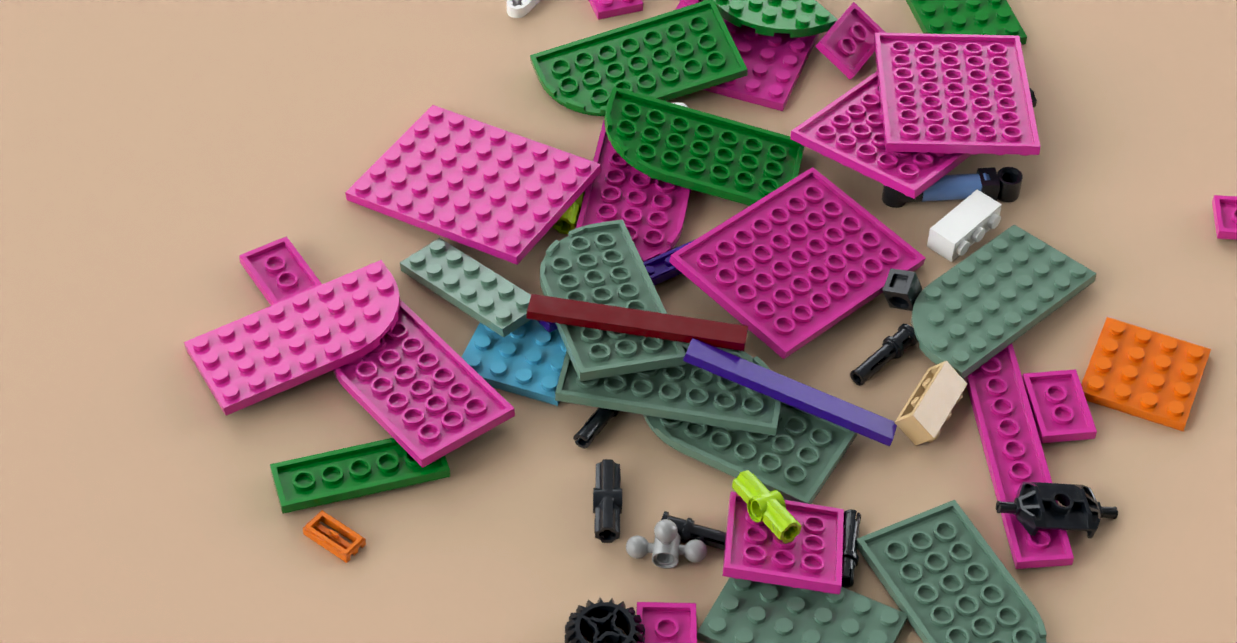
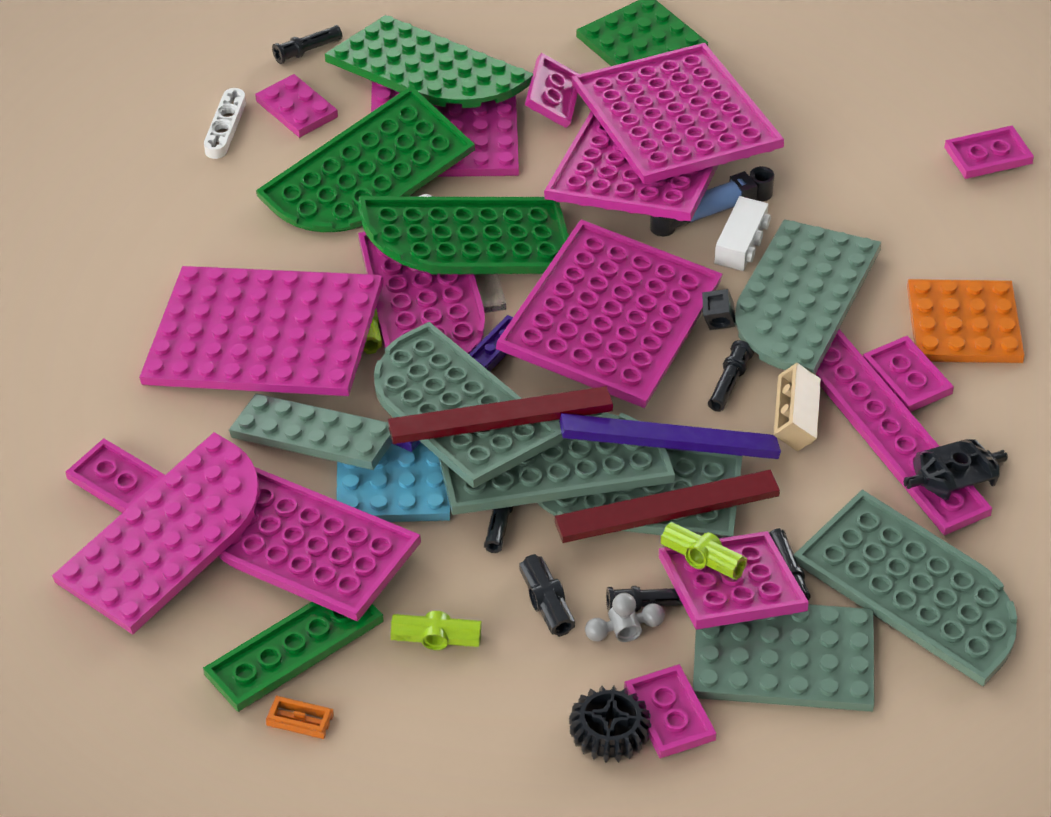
camera: 20 degrees left, 0 degrees up
(491, 499) = (436, 630): none -> lime piece
(698, 210) = (491, 292): none -> clear tile
(759, 455) = (666, 506): none -> dark red tile

